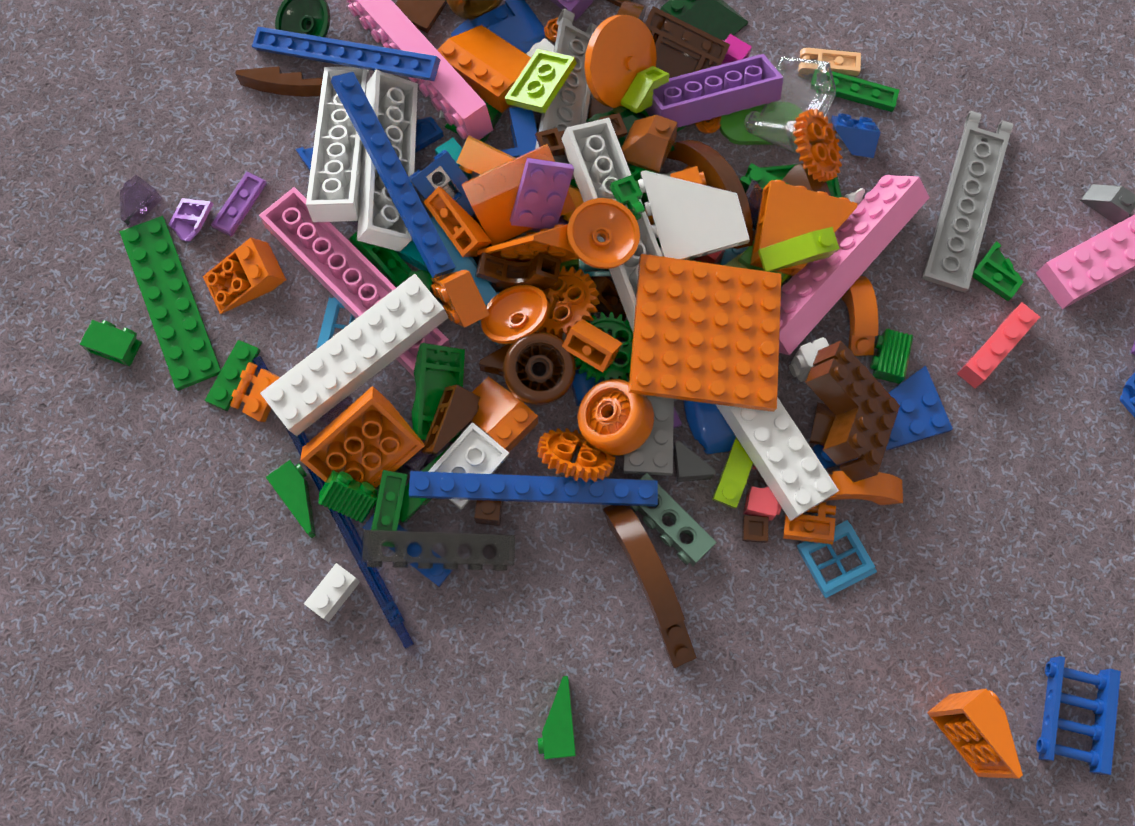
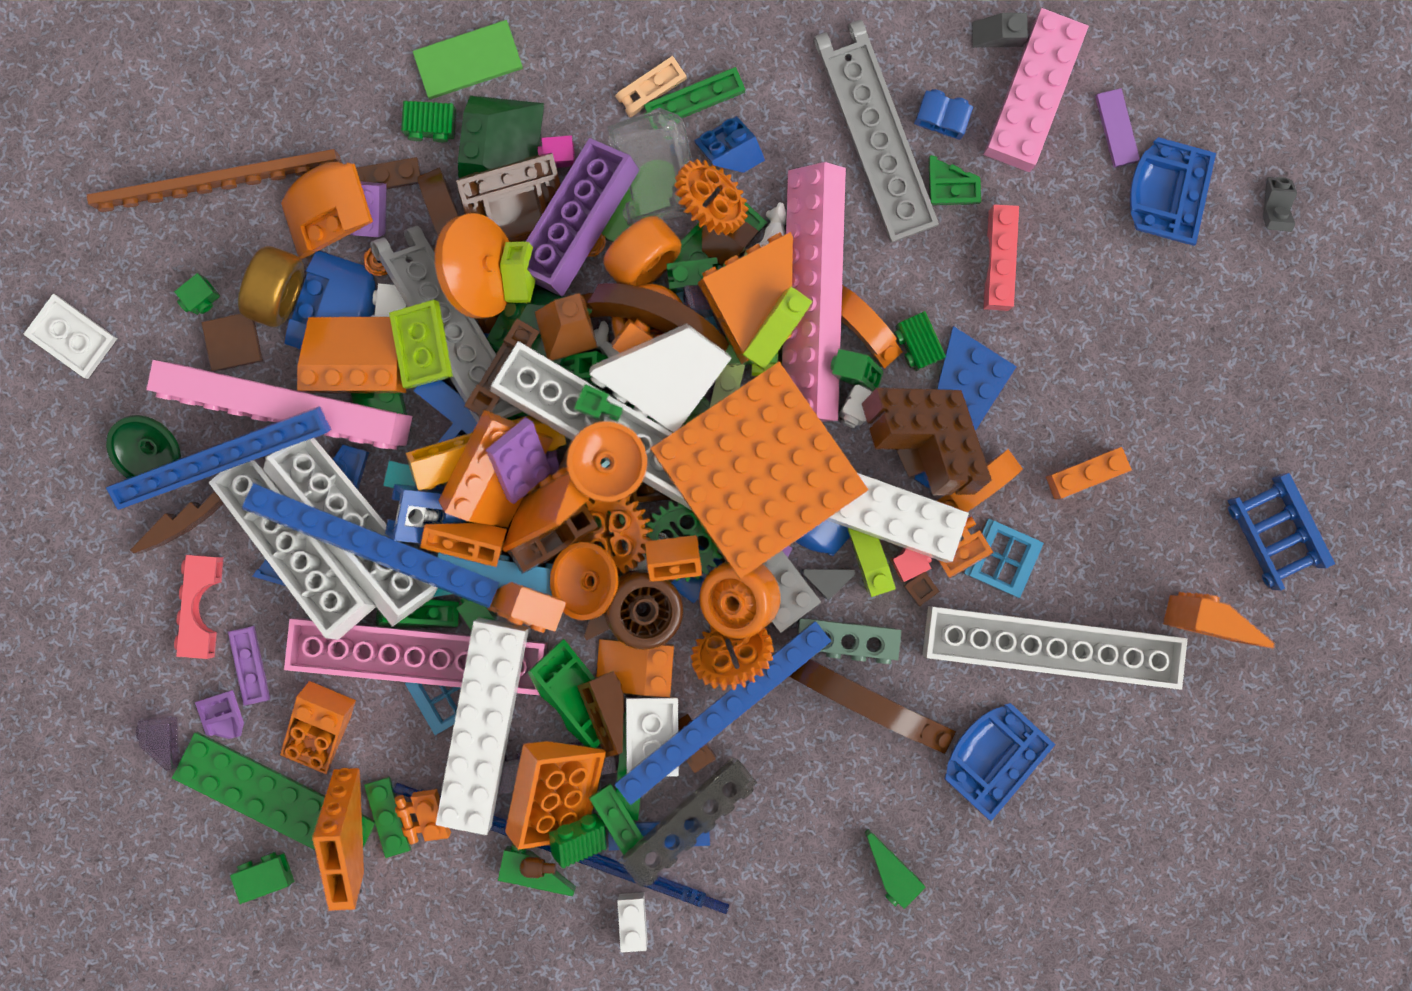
camera: 35 degrees left, 15 degrees up
(184, 351) = (340, 840): none -> orange slope
(261, 123) = (194, 637): none -> coral arch
(300, 488) = (536, 867): none -> reddish brown cylinder
(712, 703) = (996, 758): none -> blue slope
(742, 141) = (642, 252): none -> orange wheel
(829, 657) = (1054, 647): none -> white brick
(832, 323) = (856, 369): none -> green slope
(967, 549) = (1088, 473): none -> orange arch
(1026, 223) = (944, 114): none -> blue brick

